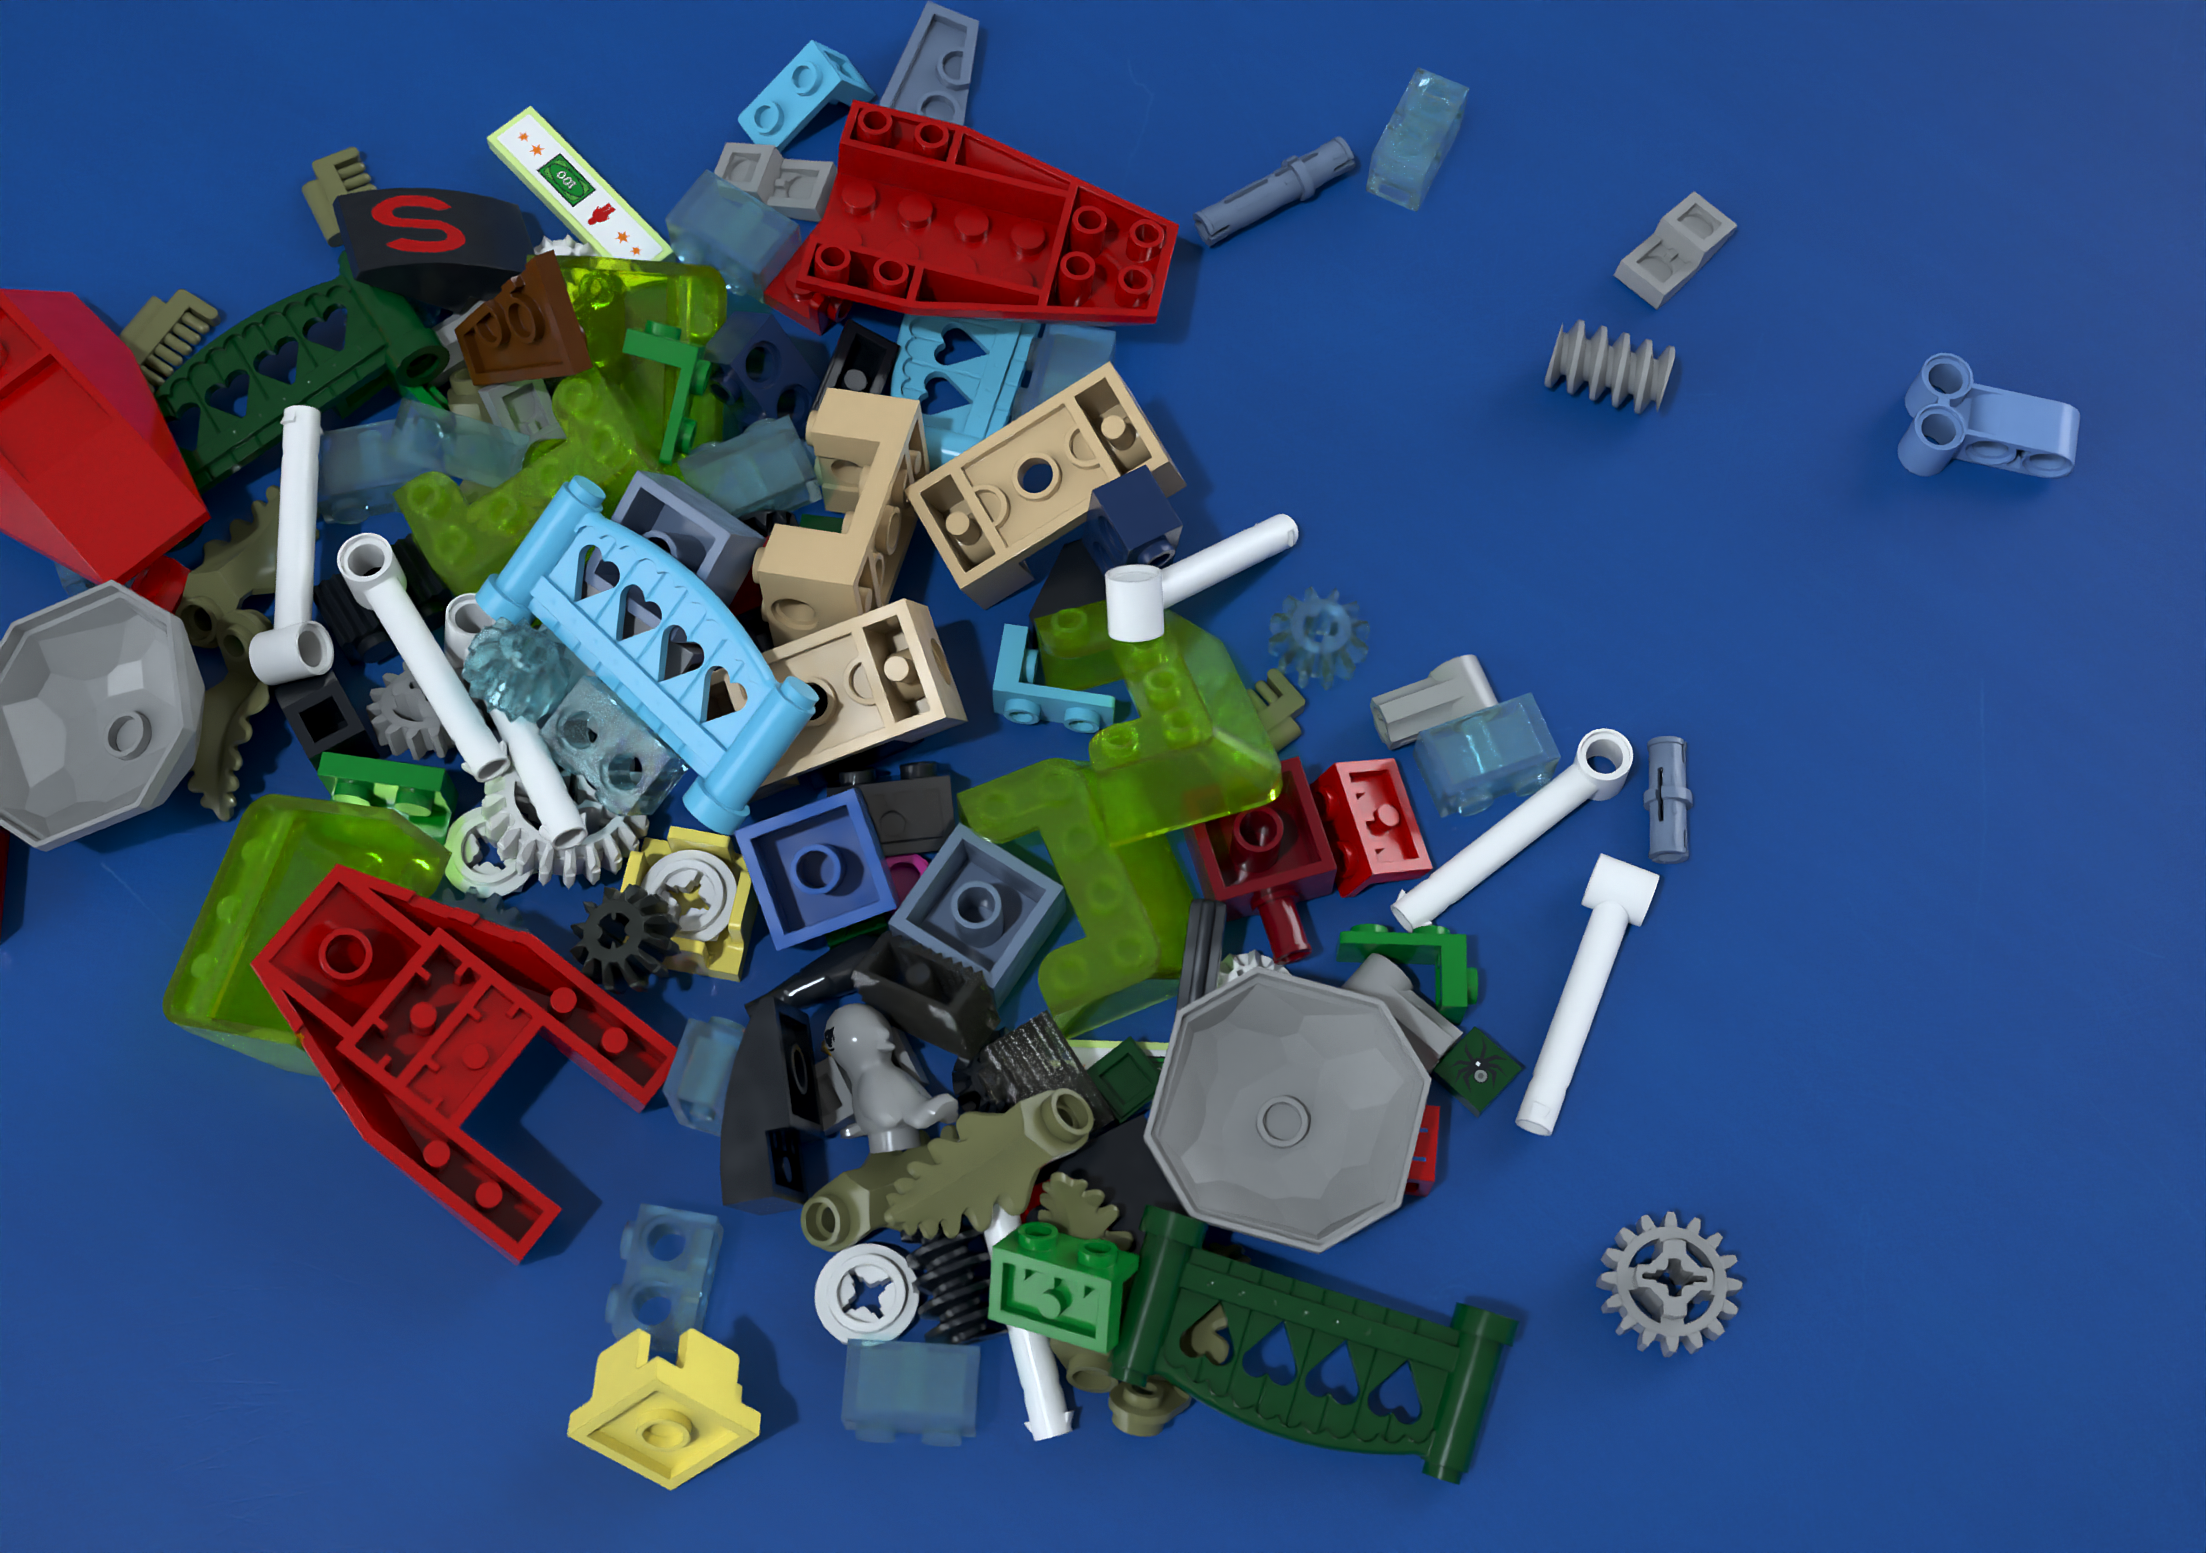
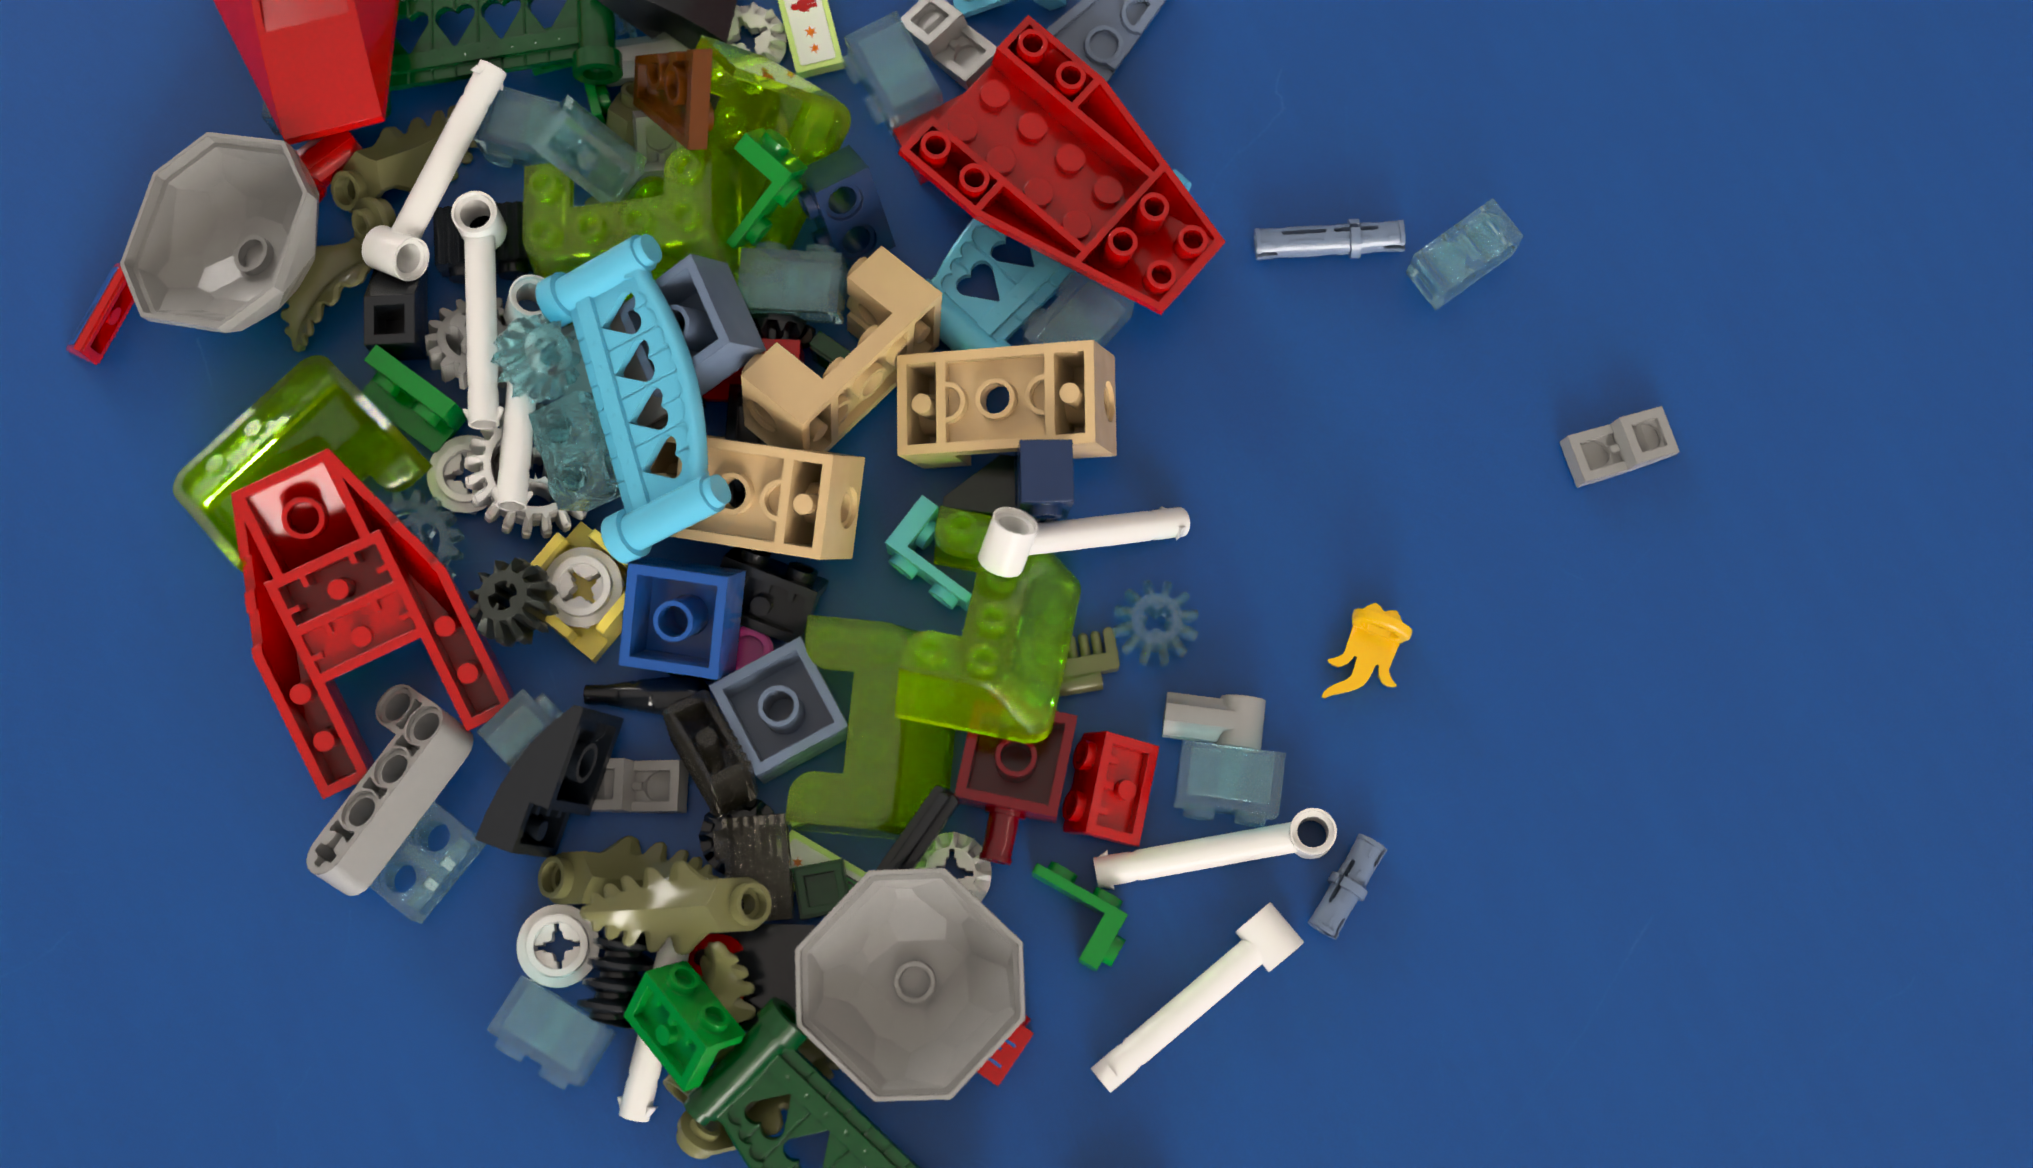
camera: 30 degrees right, 10 degrees up
(597, 1213) = (392, 793): none -> light grey beam
(662, 1415) = (362, 970): light yellow panel -> none
(858, 363) = (922, 233): black slope -> none
(884, 1098) = (643, 814): light grey animal -> none
(1422, 1025) = (1045, 934): light grey piece -> none
(1476, 1071) = (1084, 1015): dark green tile -> none
(1549, 551) = (1373, 643): none -> yellow piece
(1610, 366) = (1504, 520): light grey piece -> none
(1984, 425) = (1777, 718): medium blue piece -> none

